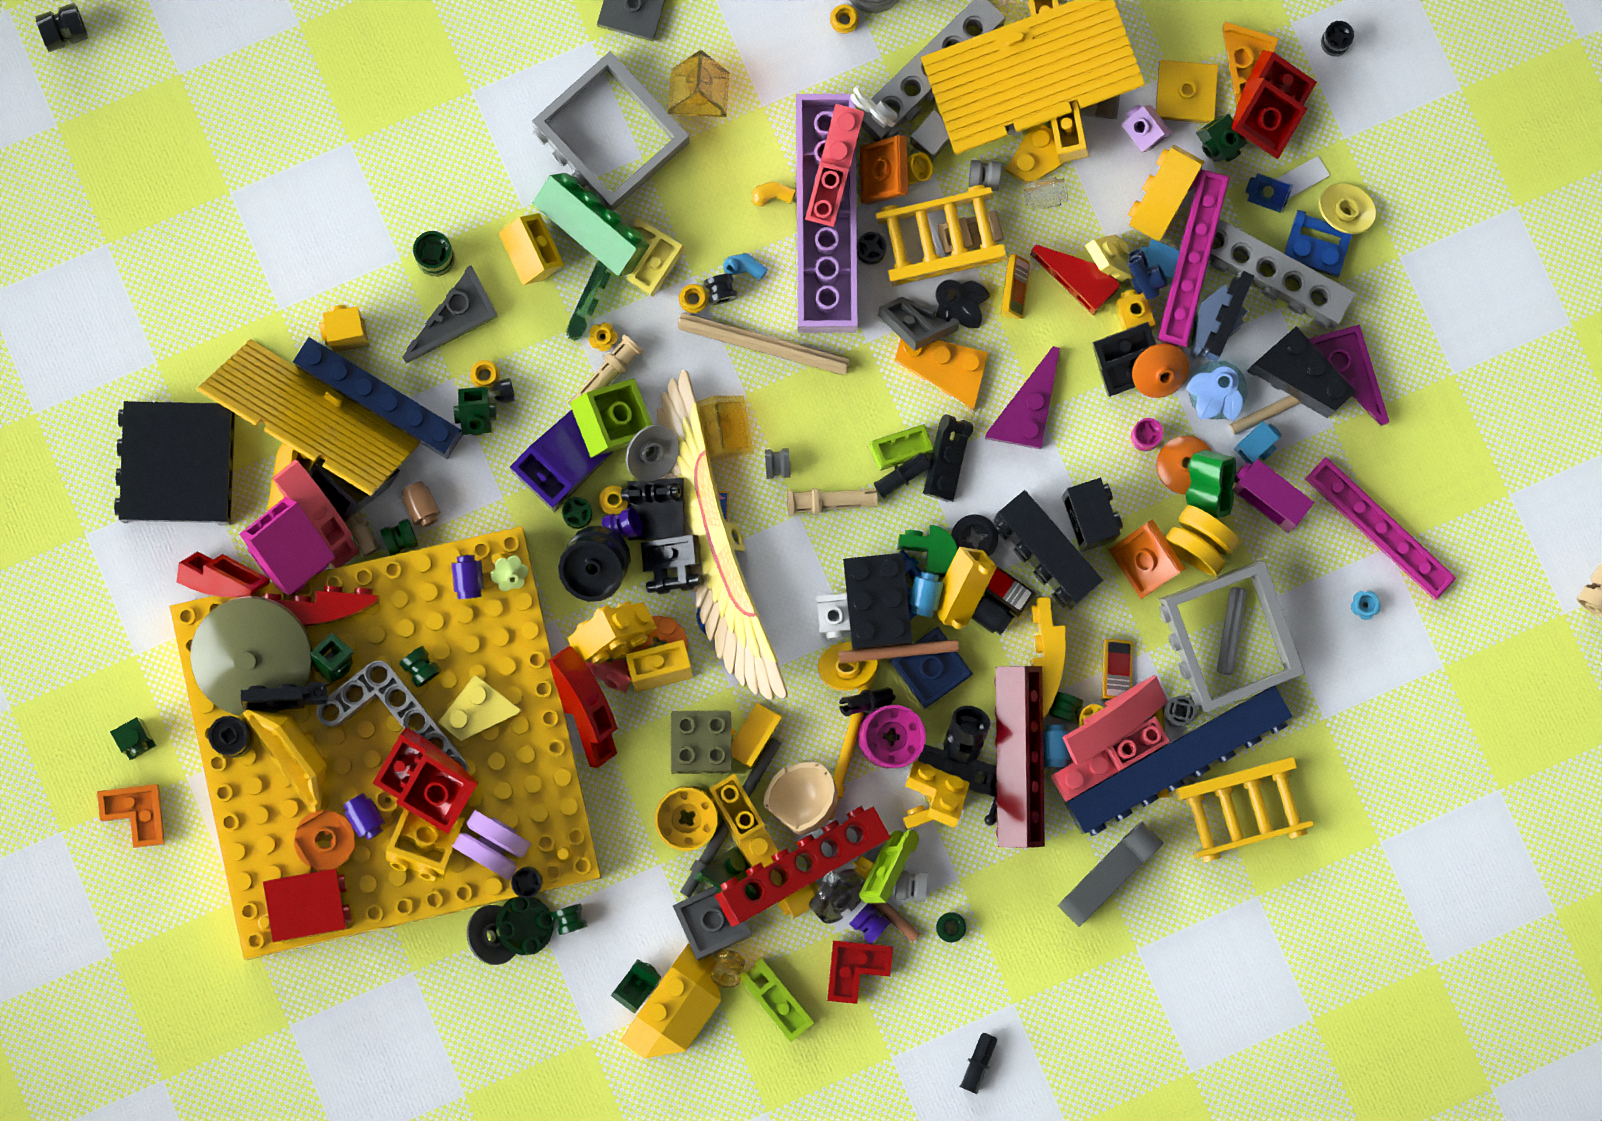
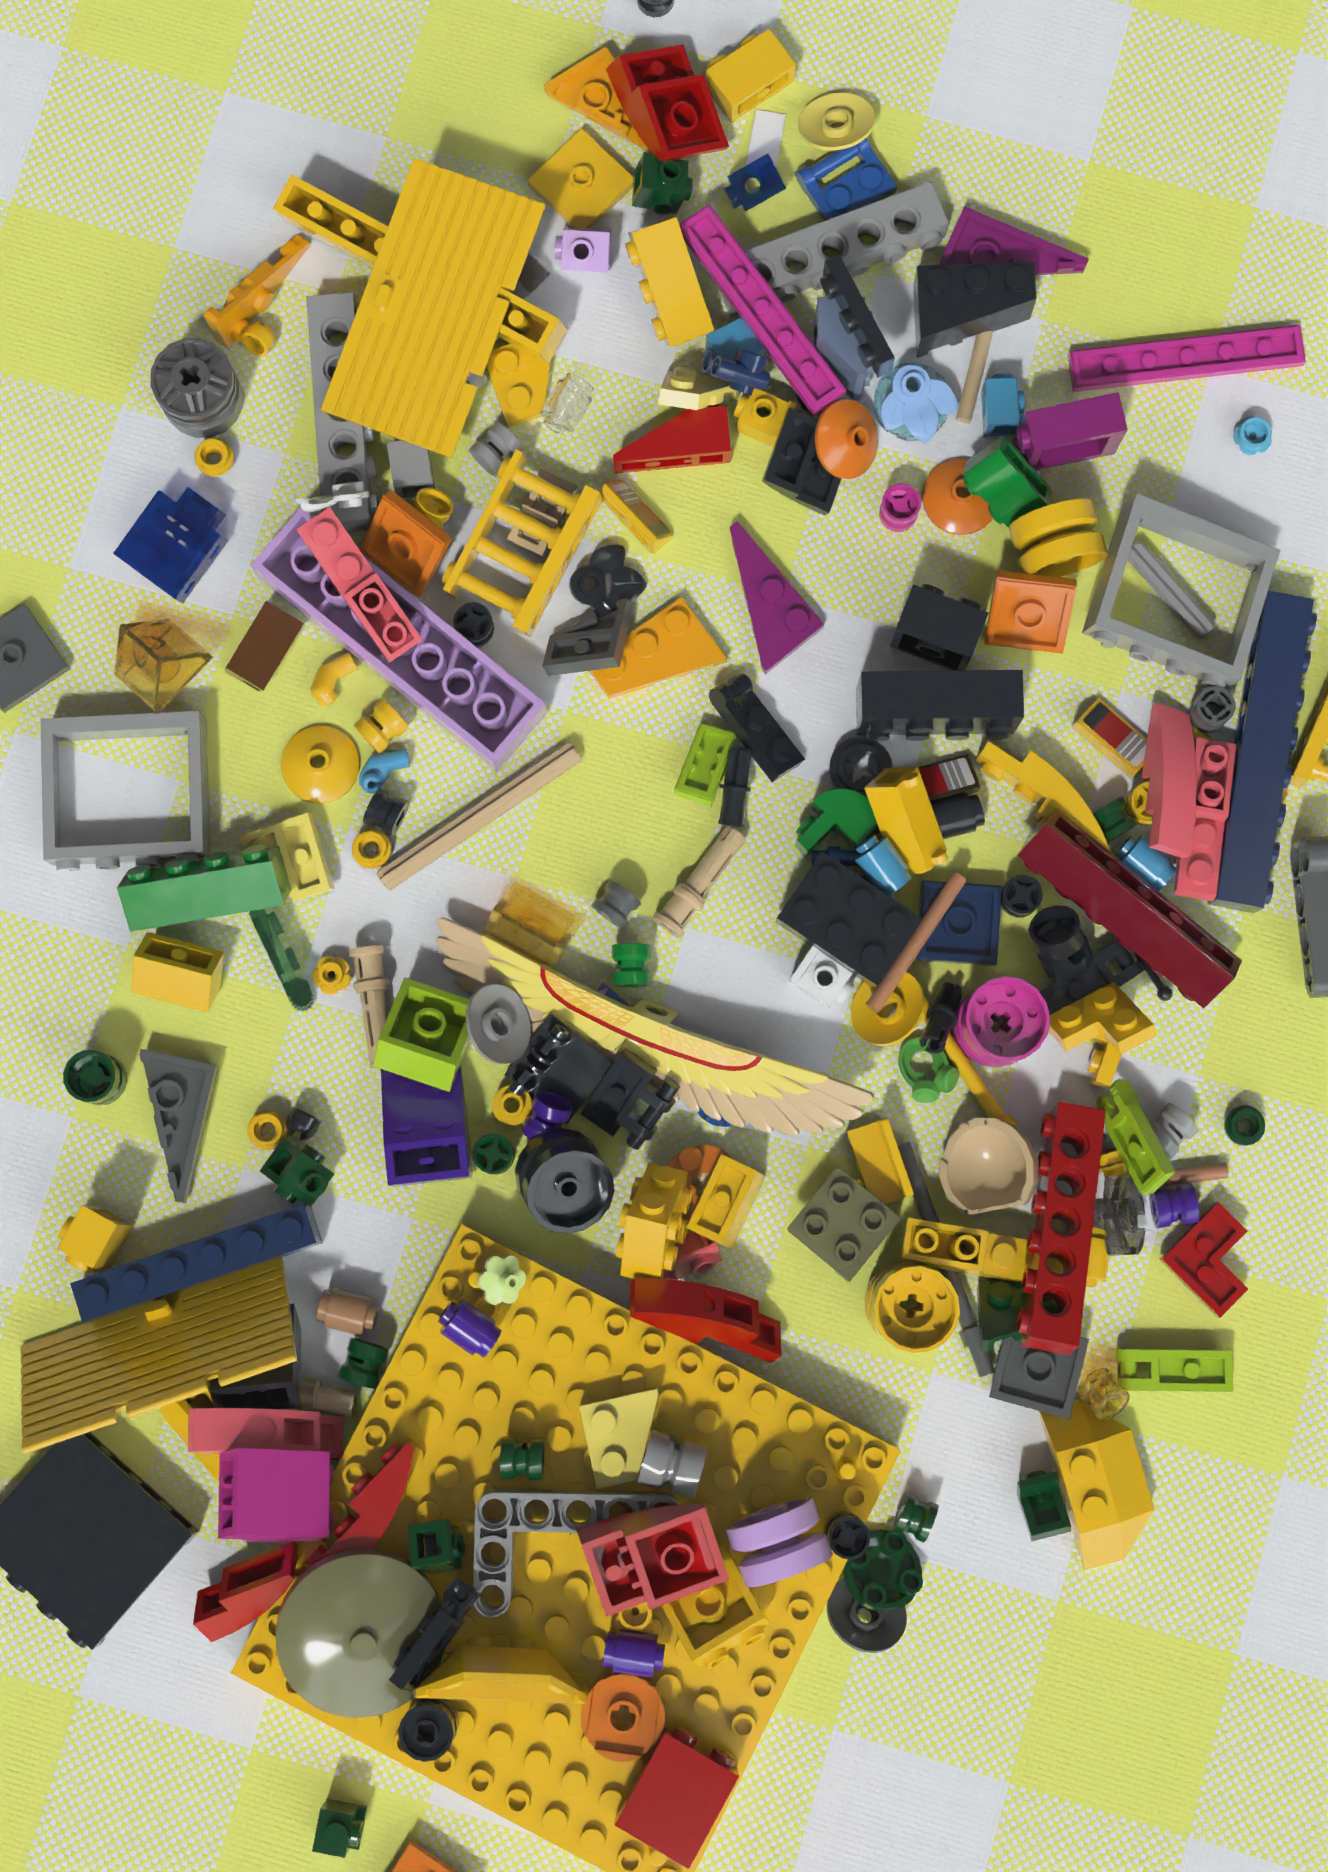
camera: 40 degrees left, 0 degrees up
(486, 752) = (673, 1464): none -> light grey wheel
(717, 243) = (330, 780): none -> yellow dish
(747, 502) = (631, 965): none -> green wheel
(757, 140) = (263, 647): none -> reddish brown hinge
(775, 38) = (174, 542): none -> clear blue piece
(775, 245) = (387, 719): none -> yellow wheel
(817, 726) = (923, 1089): none -> bright green piece
(982, 687) = (1026, 891): none -> black wheel
(1333, 134) = (749, 74): none -> yellow brick

